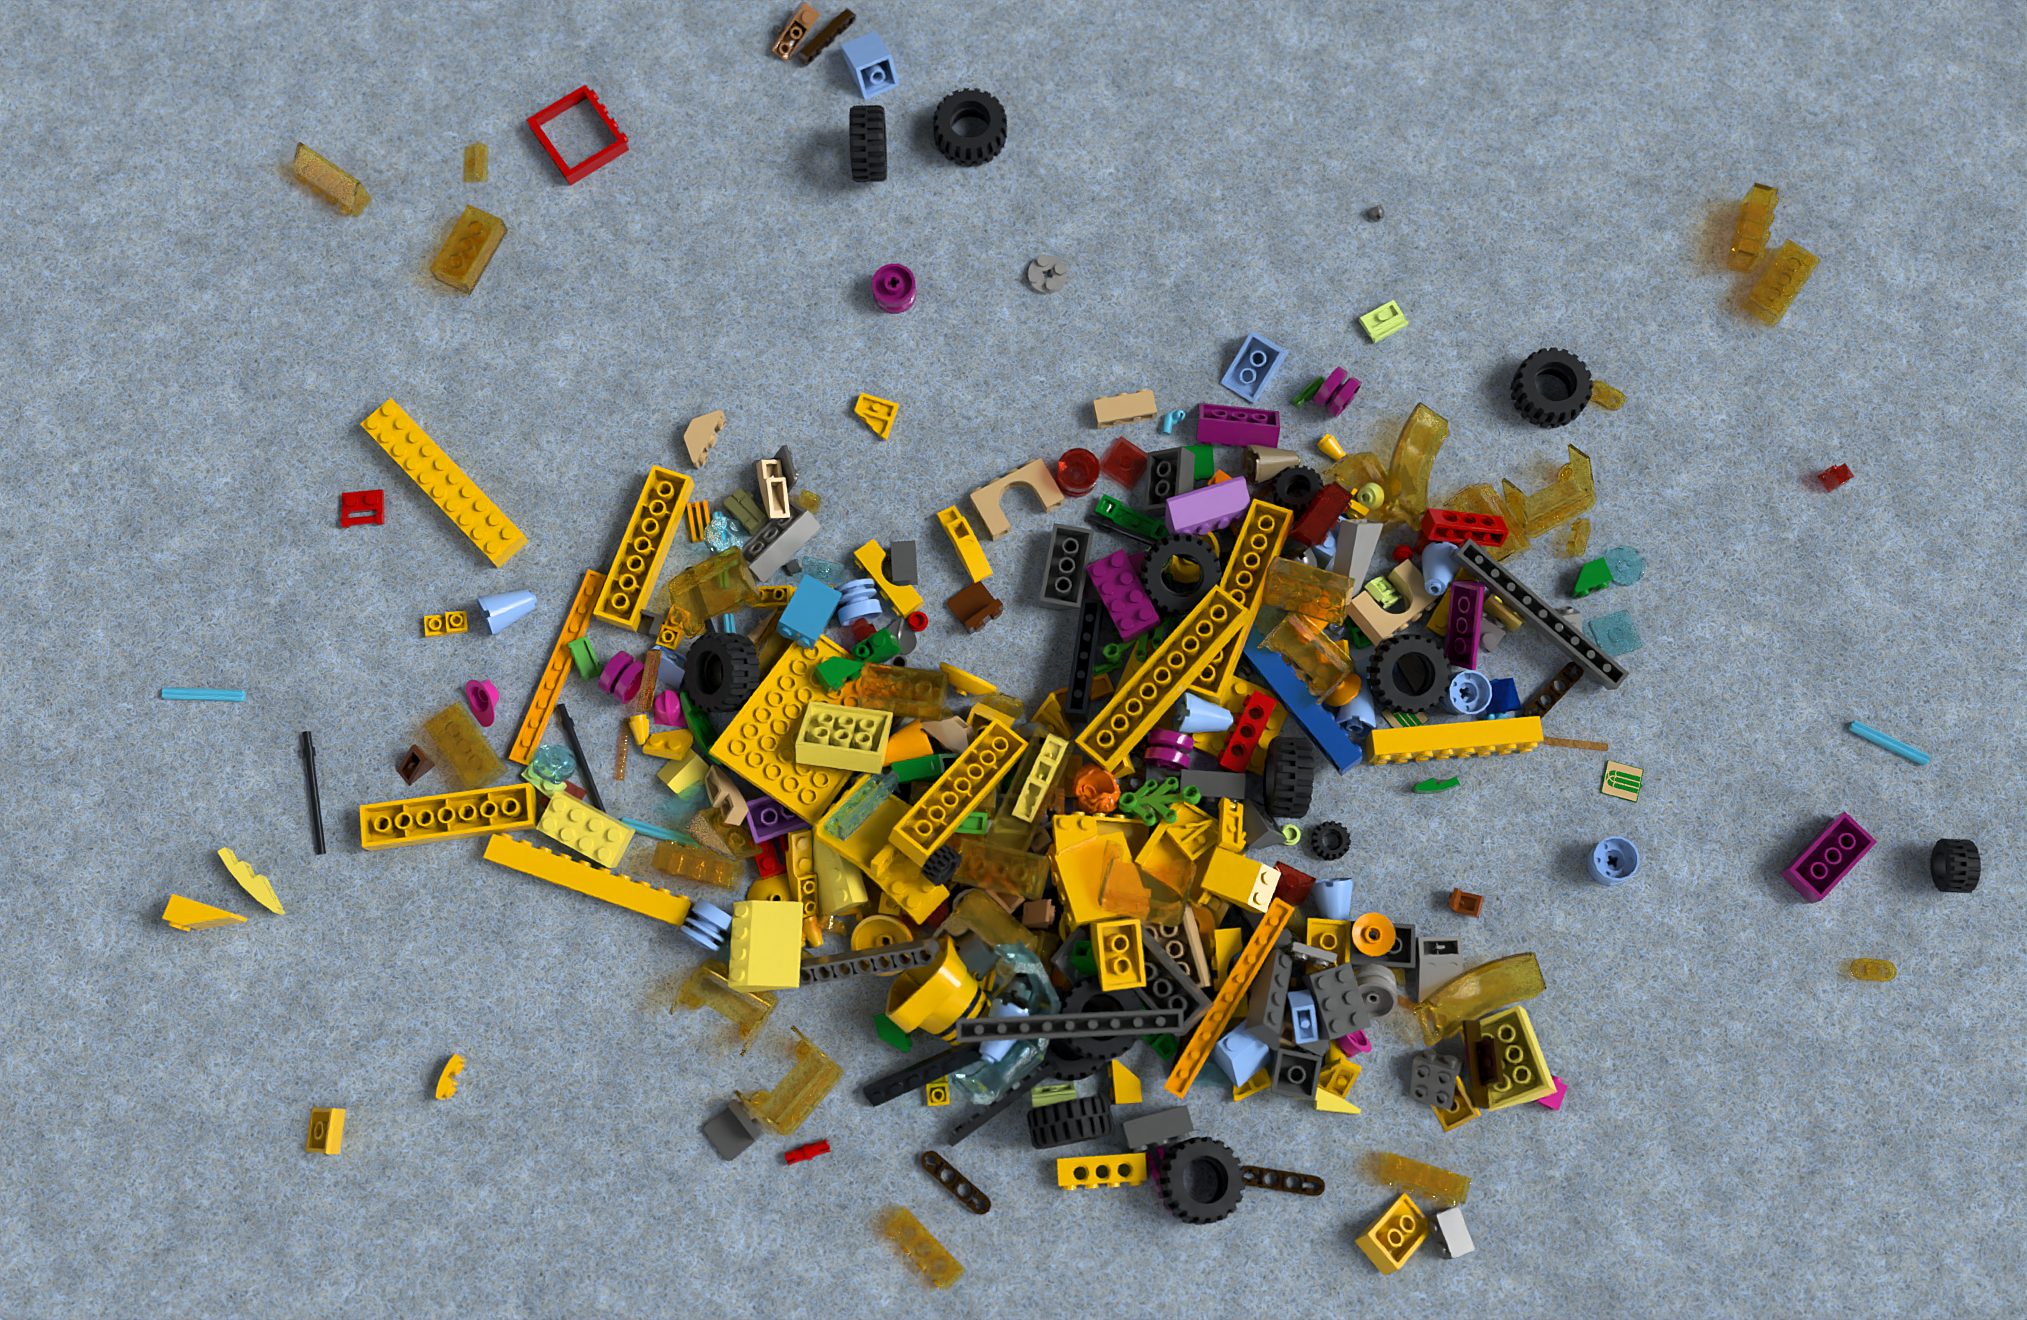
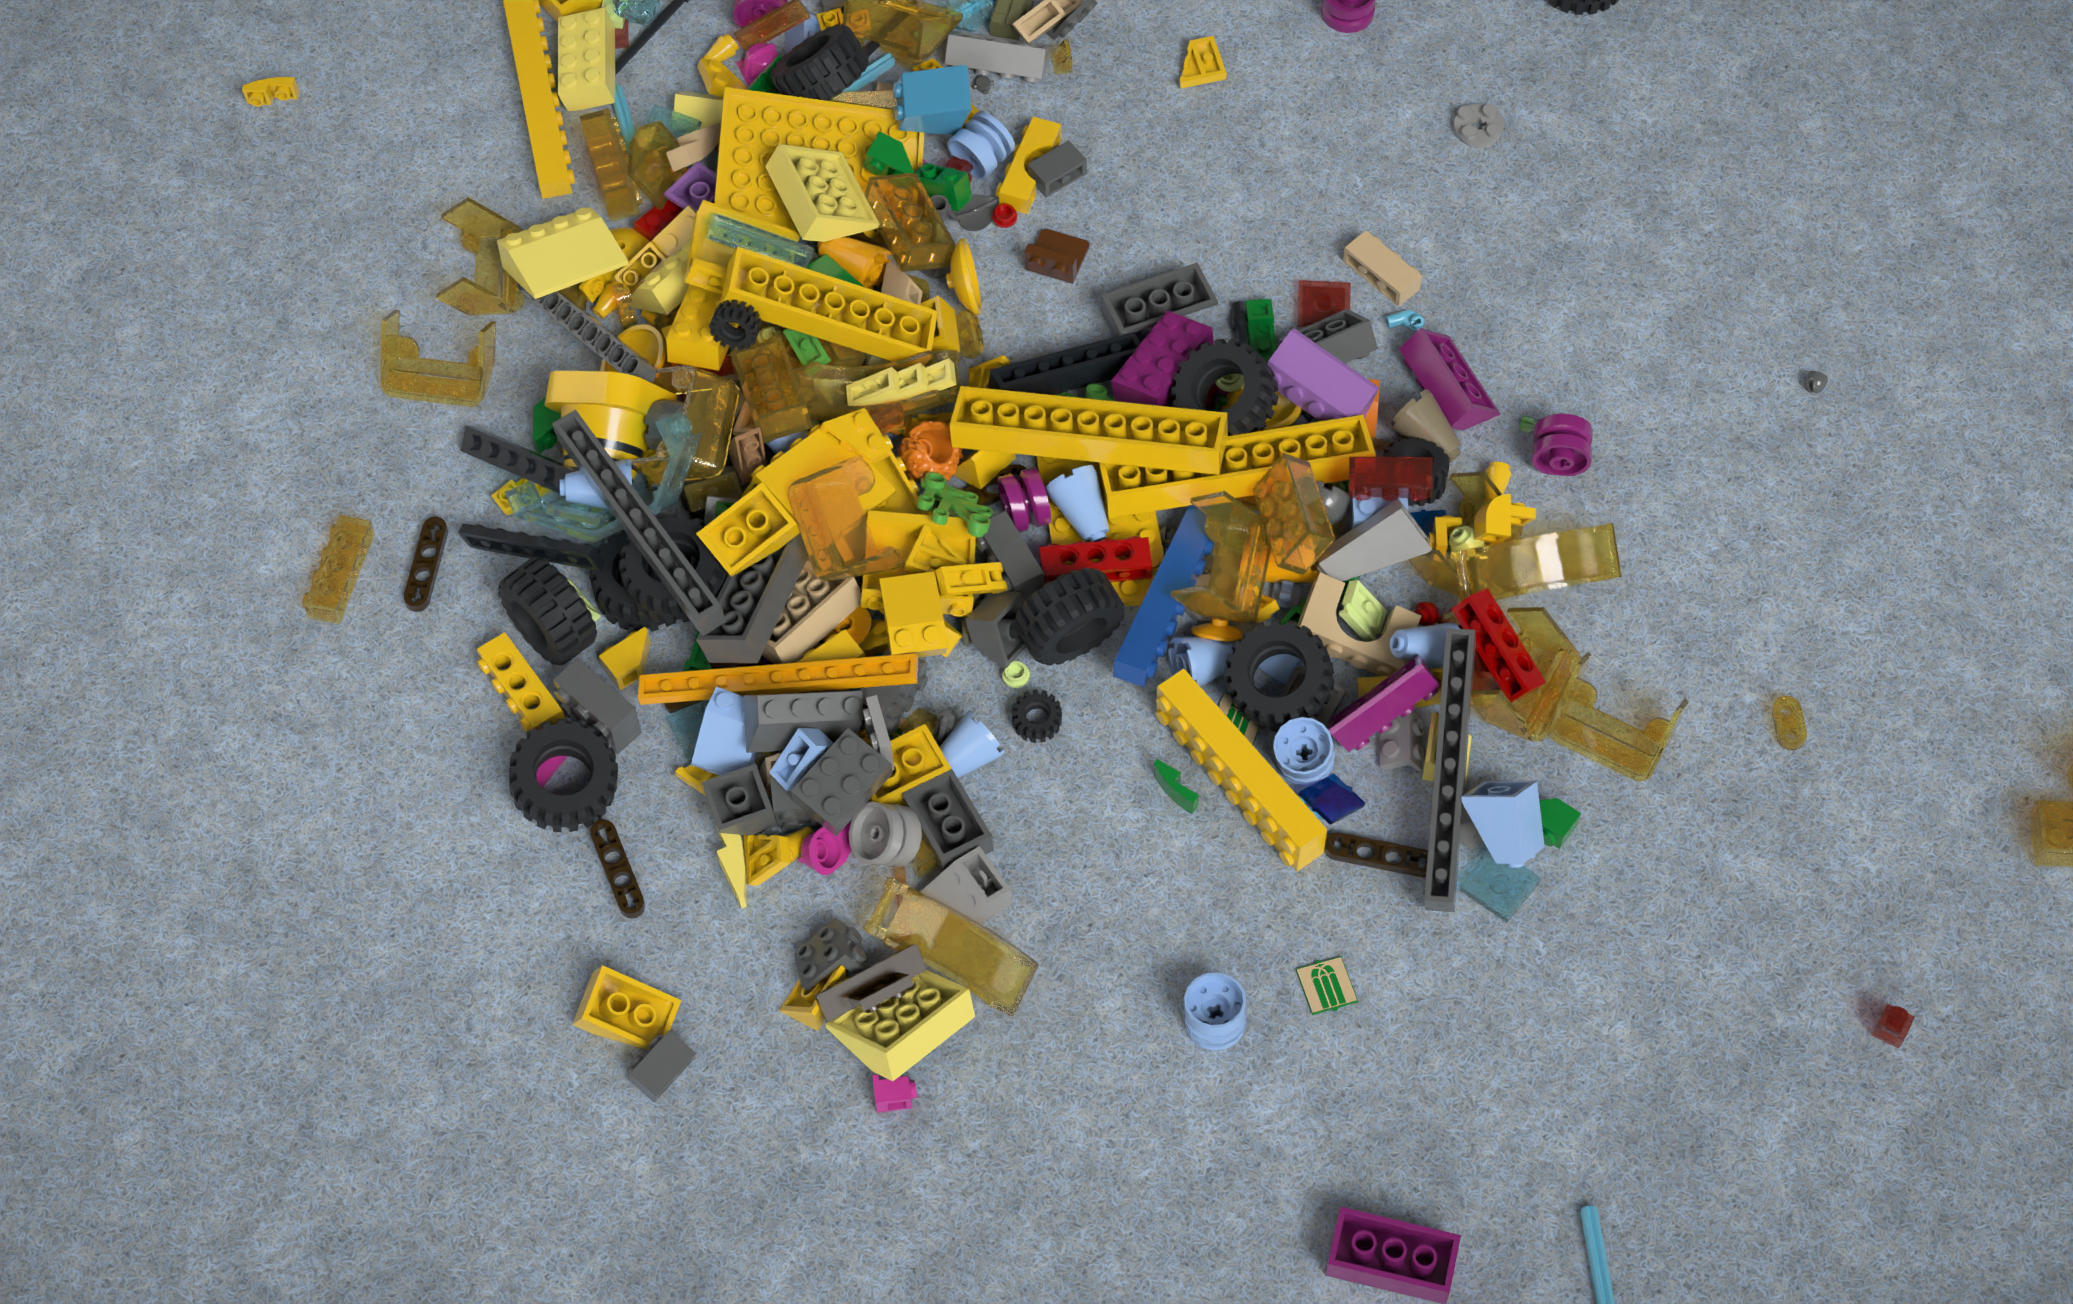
camera: 60 degrees right, 15 degrees down
(325, 1130) = (162, 31): yellow slope -> none
(622, 759) = (686, 53): clear orange bar -> none
(707, 925) = (547, 203): light blue wheel -> none
(734, 1130) = (358, 345): dark grey bracket -> none
(807, 1152) = (377, 417): red pin -> none
(824, 569) = (994, 97): clear light blue plate -> none
(965, 543) = (1117, 206): yellow slope -> none
(1031, 476) = (1184, 203): tan arch -> none
(1079, 461) = (1272, 258): clear red wheel -> none
(1203, 461) = (1380, 366): green piece -> none
(1254, 366) = (1532, 359): light blue slope -> none
(1292, 884) = (951, 691): clear red slope -> none
(1311, 905) = (944, 725): none -> dark grey axle
(1374, 468) = (1495, 518): none -> yellow brick
(1381, 927) = (948, 780): light orange dish -> none
(1383, 321) = (1689, 455): yellowish green plate -> none
(1424, 1178) = (708, 1007): clear yellow brick -> none
(1465, 903) = (1058, 886): dark orange bracket -> none
(1564, 367) = (1742, 685): black tyre -> none
(1576, 743) = (1335, 911): clear orange bar -> none
(1578, 537) = (1587, 783): clear yellow plate -> none
(1587, 604) = (1507, 819): none -> light blue slope
(1635, 562) = (1599, 837): clear light blue plate -> none

